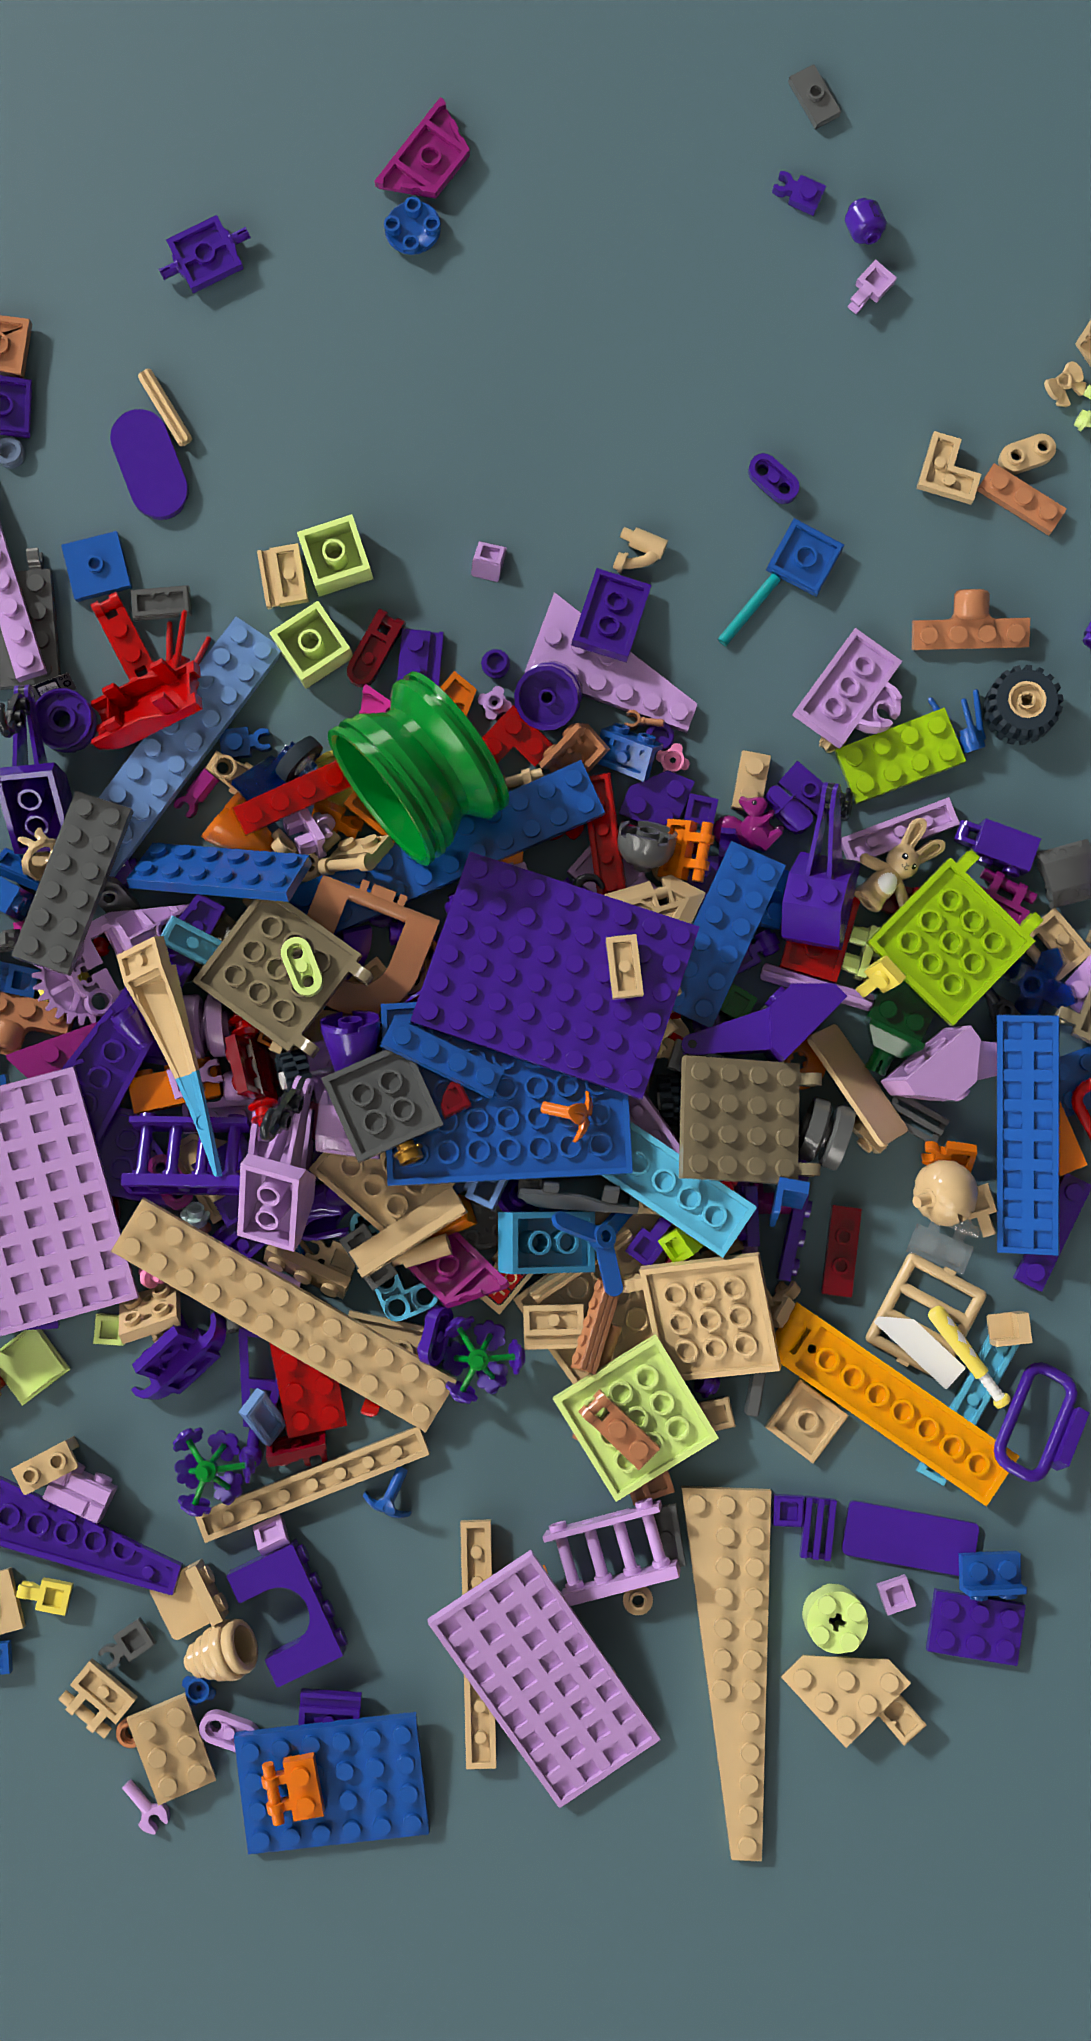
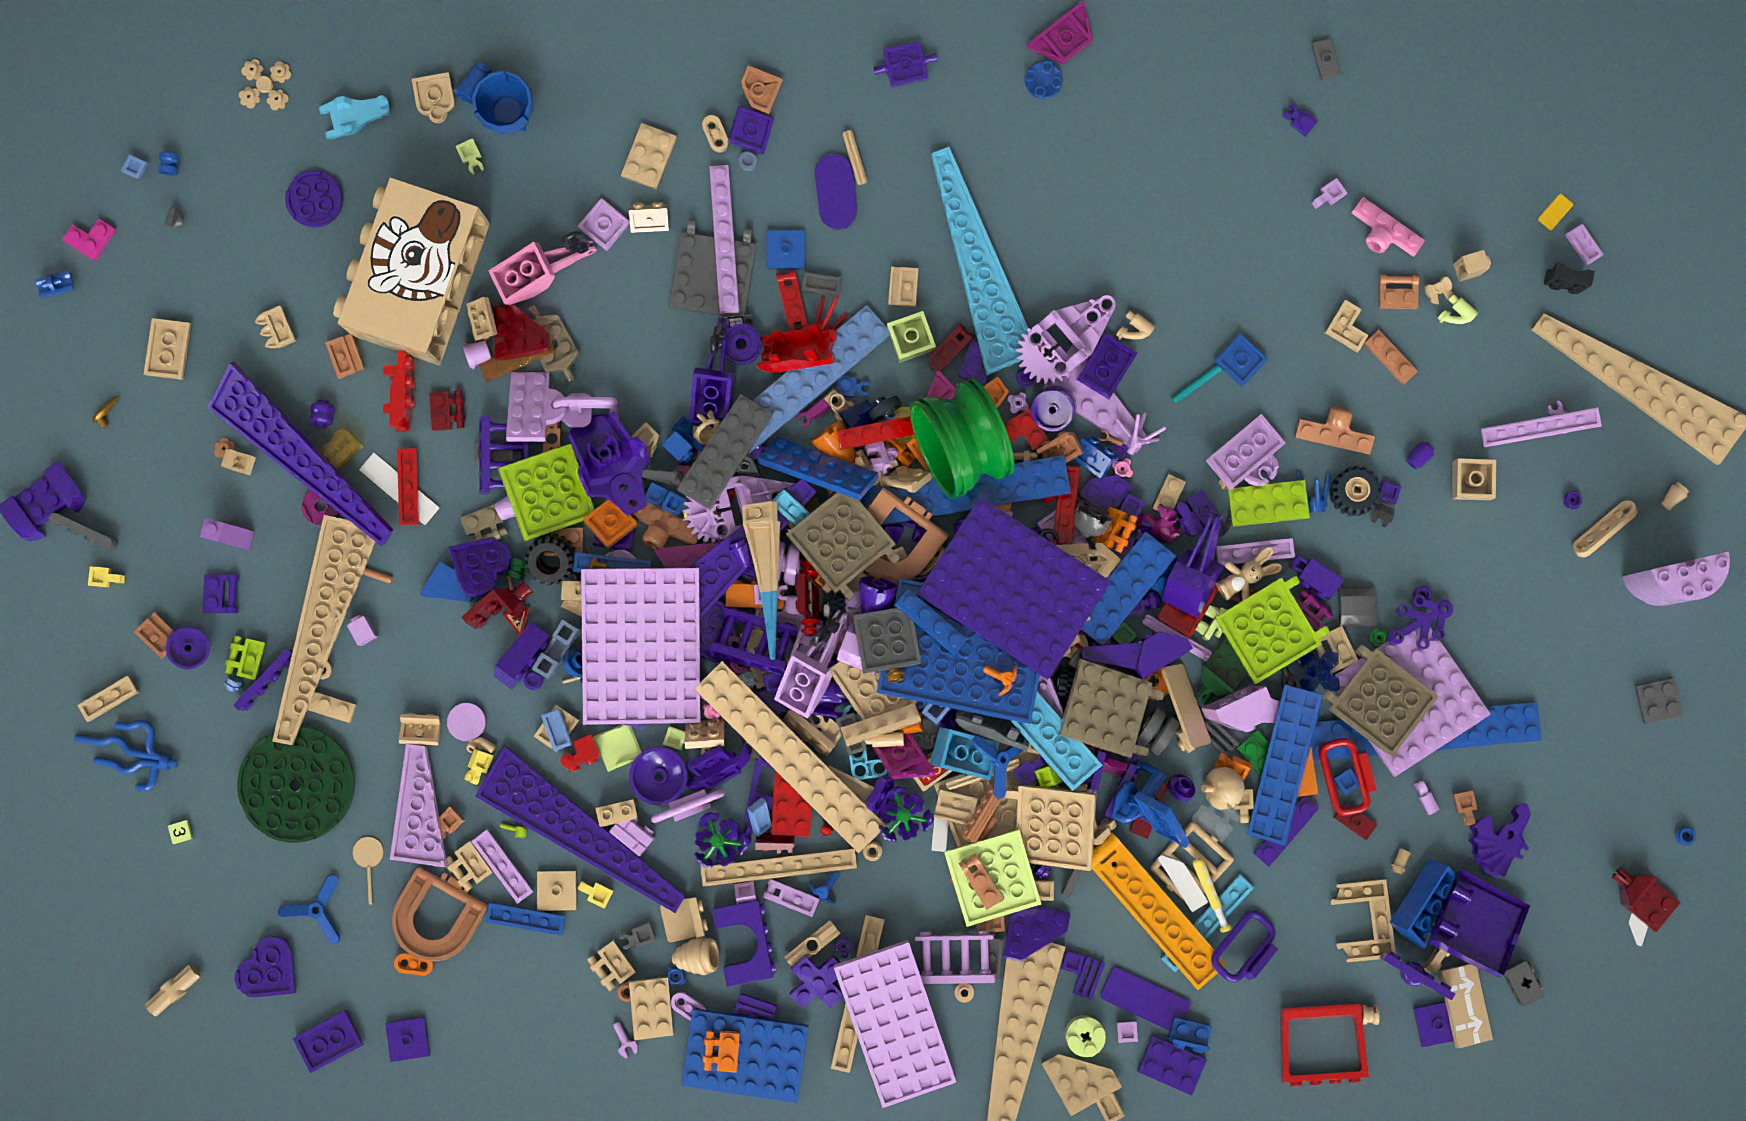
camera: 15 degrees right, 0 degrees up
(76, 1397) = (644, 779): none -> dark purple dish
(152, 1427) = (688, 805): none -> lavender bar
(303, 967) = (857, 543): yellowish green plate -> none
(335, 555) = (940, 283): yellowish green brick -> none
(343, 1524) = (791, 898): none -> lavender plate
(380, 1602) = (821, 936): none -> tan piece
(409, 1643) = (816, 982): none -> dark purple plate
(426, 577) = (988, 293): none -> medium azure wing
(441, 1585) = (843, 951): none -> dark purple plate
(447, 1432) = (872, 857): none -> tan plate
(454, 1100) = (931, 650): dark red tile -> none
(488, 561) = (1037, 309): lavender slope -> none
(542, 1372) = (939, 835): none -> white sticker
(552, 570) = (1078, 330): none -> lavender connector
(624, 966) = (1058, 594): tan plate -> none
(682, 711) = (1136, 440): none -> lavender plant
(716, 1481) = (1033, 930): none -> dark purple plate
(776, 477) = (1234, 303): dark purple plate -> none
(790, 1194) = (1125, 763): blue panel -> none
(806, 1421) = (1099, 909): tan tile -> none
(836, 1251) = (1134, 804): none -> blue plate
(865, 221) = (1336, 151): dark purple head -> none
(881, 974) = (1219, 641): light yellow plate -> none
(882, 1208) = (1181, 787): none -> dark purple plate
(966, 317) = (1386, 229): none -> bright pink plate
(977, 1125) = (1255, 751): none -> green plate
(1009, 1328) = (1241, 883): tan panel -> none
(1010, 410) = (1398, 297): none -> nougat plate
(1029, 454) = (1403, 329): tan plate -> none
(1071, 725) = (1384, 512): none -> clear smoke tile
(1074, 695) = (1389, 492): none -> dark purple tile

